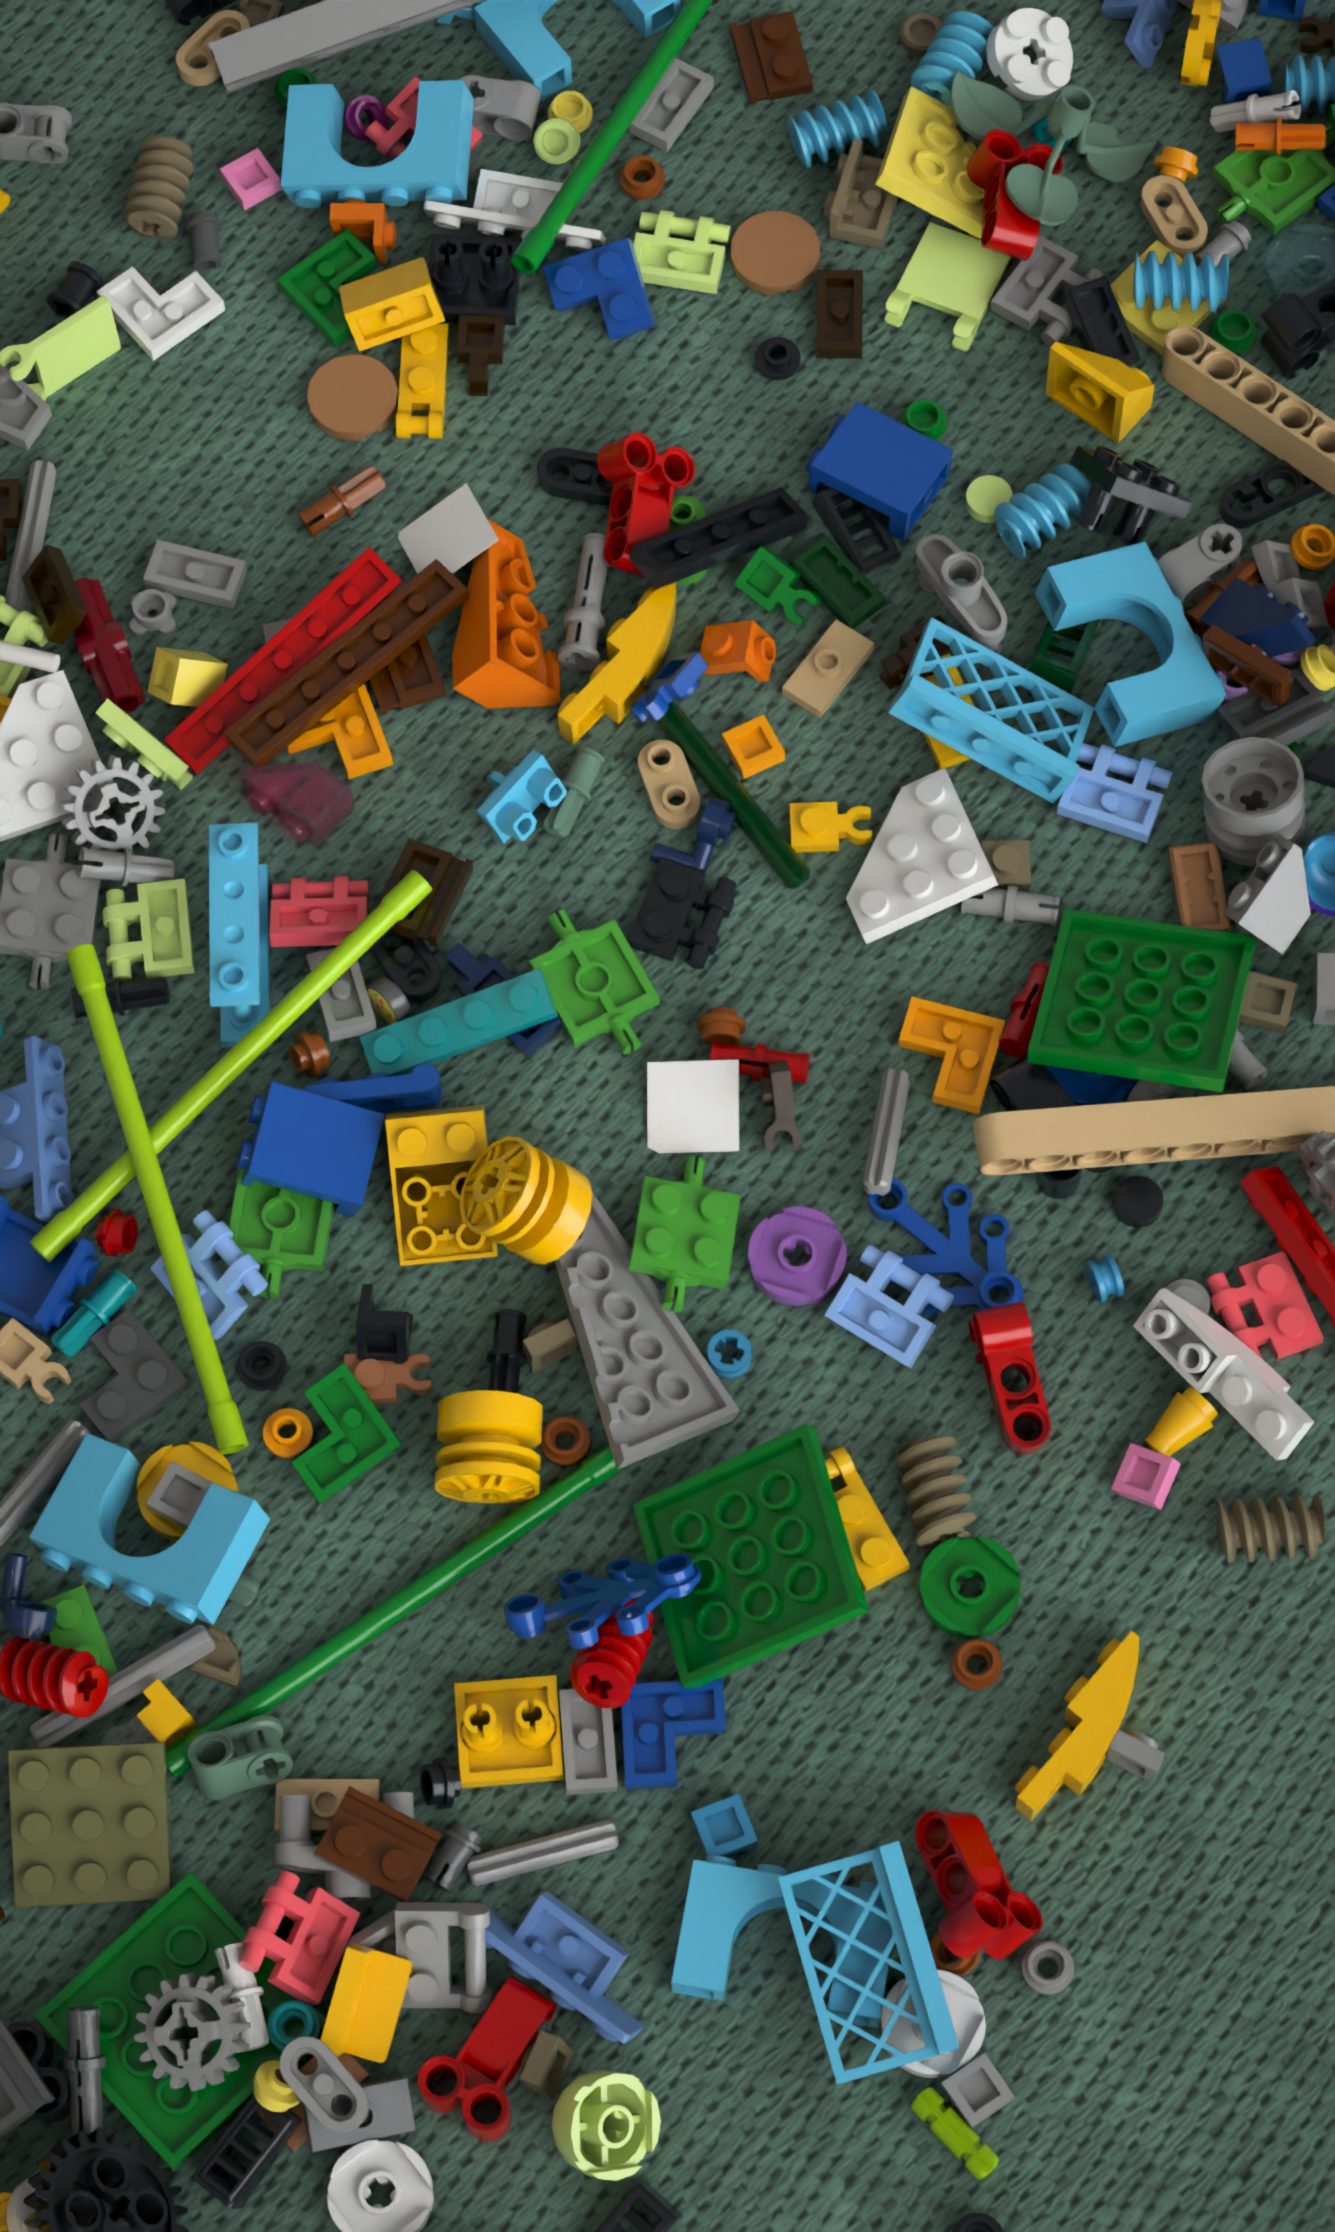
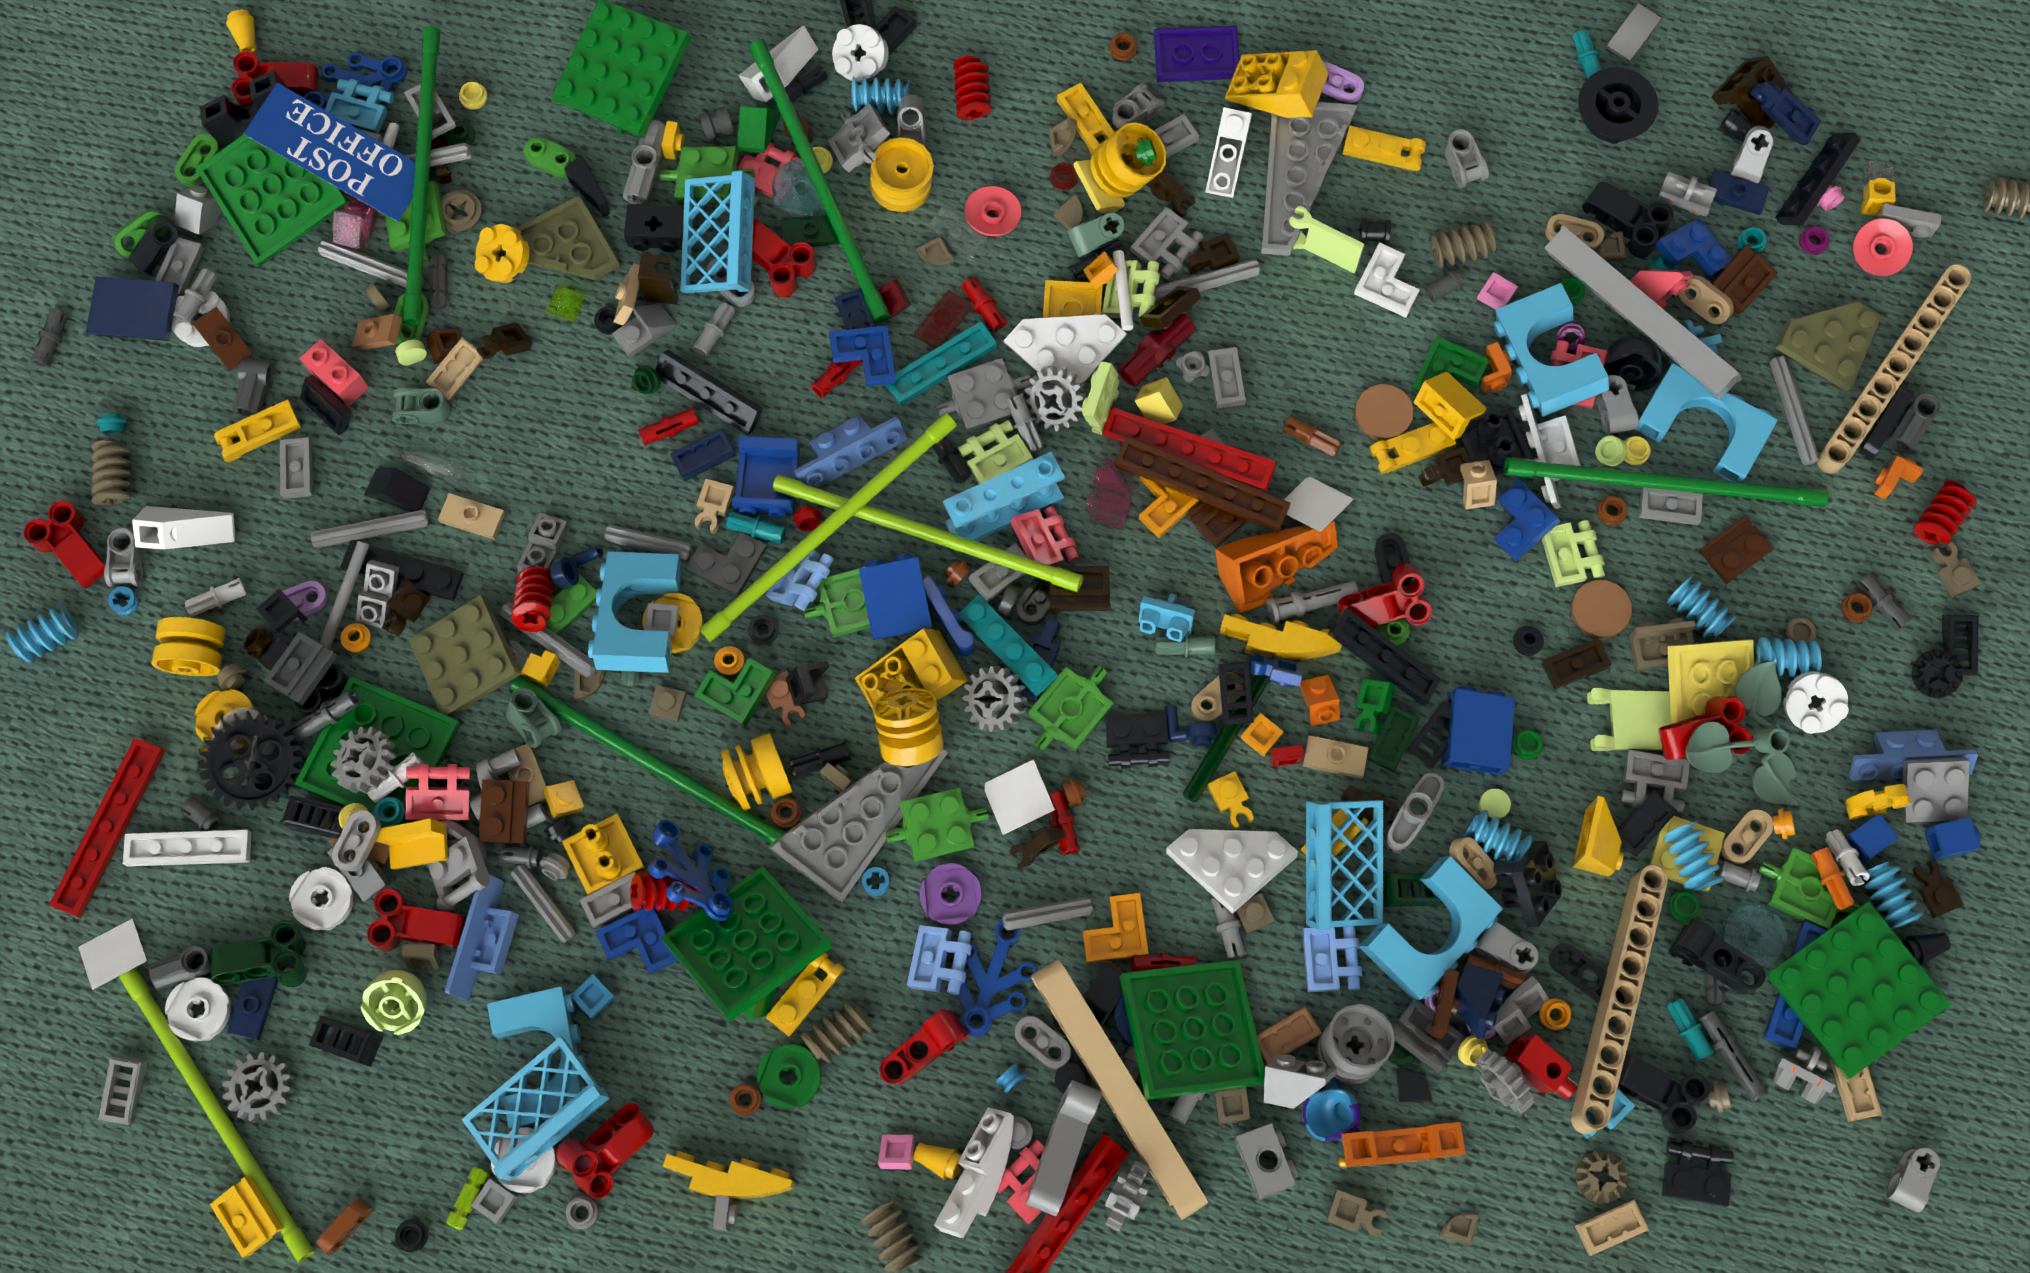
camera: 65 degrees right, 5 degrees up
(311, 1551) = (667, 703): none -> dark tan plate
(392, 1759) = (563, 799): none -> yellow plate
(447, 47) = (1636, 360): none -> black cylinder
(494, 1810) = (555, 866): none -> light grey plate
(526, 316) = (1478, 484): none -> tan bracket
(552, 1085) = (993, 713): none -> light grey gear
(657, 758) = (1223, 682): none -> black slope
(800, 726) = (1286, 755): none -> red tile
(1057, 548) = (1474, 861): none -> tan plate
(1067, 1215) = (1043, 1042): none -> light grey plate
(1233, 1238) = (1063, 1147): none -> light grey beam

